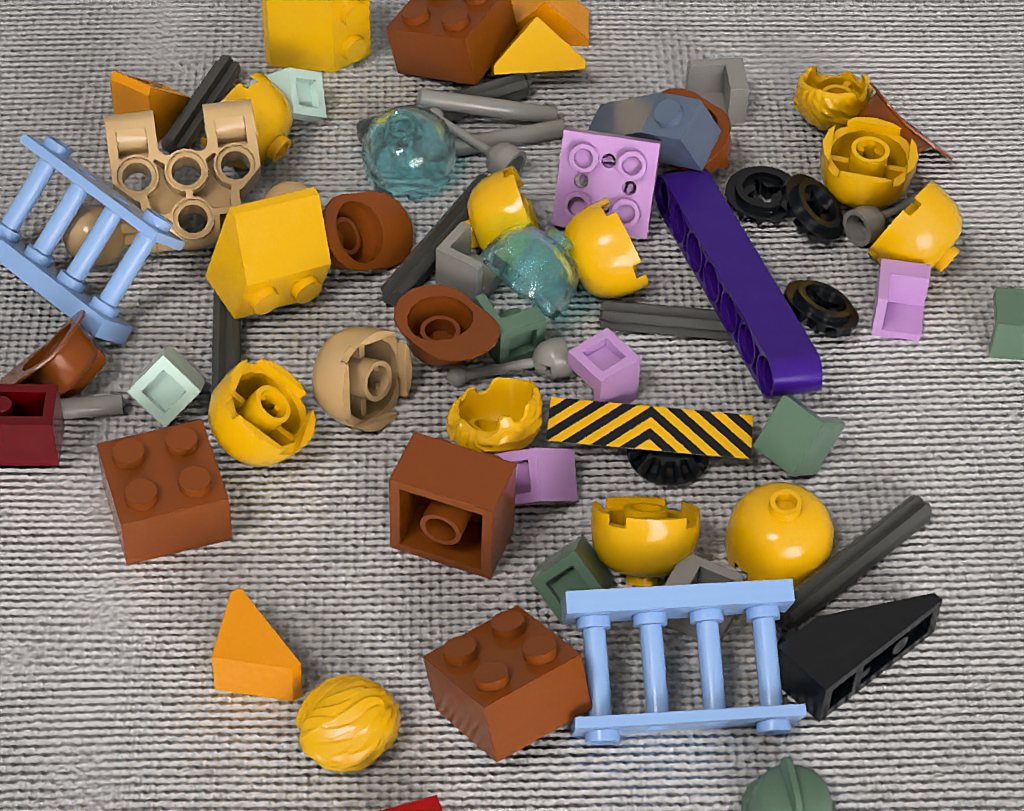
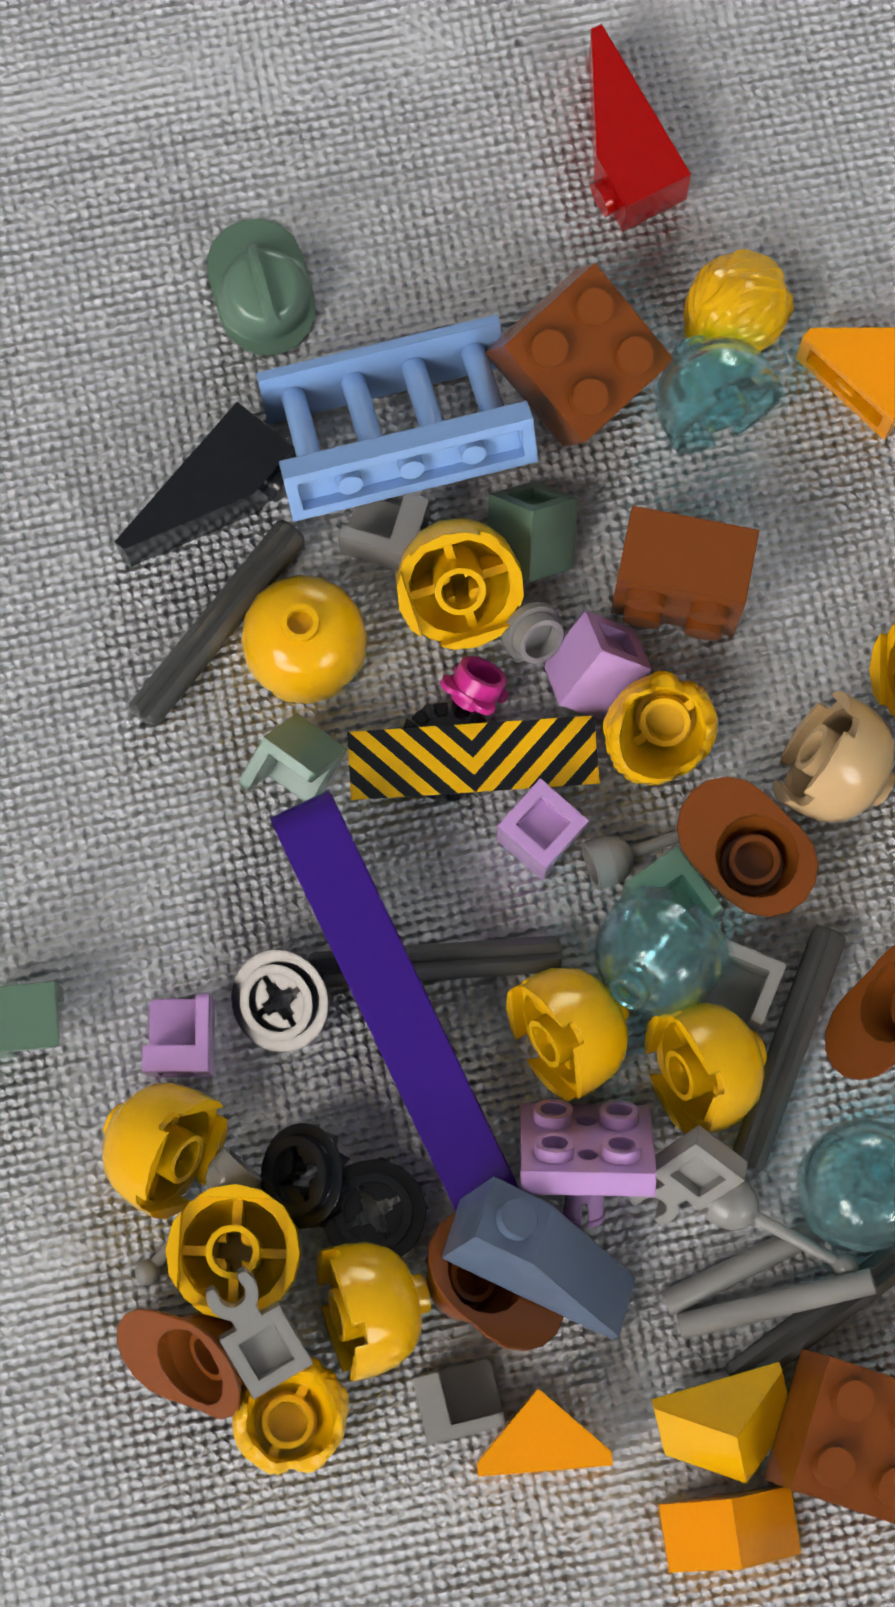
camera: 175 degrees right, 30 degrees up
(390, 631) = (713, 388): none -> clear light blue cylinder
(527, 161) = (696, 1171): none -> light grey plate
(580, 505) = (533, 633): none -> light grey plate
(636, 463) = (476, 685): none -> dark pink plate
(657, 62) = (542, 1440): none -> light orange slope
(771, 129) = (371, 1307): none -> yellow cylinder
(856, 97) = (262, 1341): none -> light grey plate

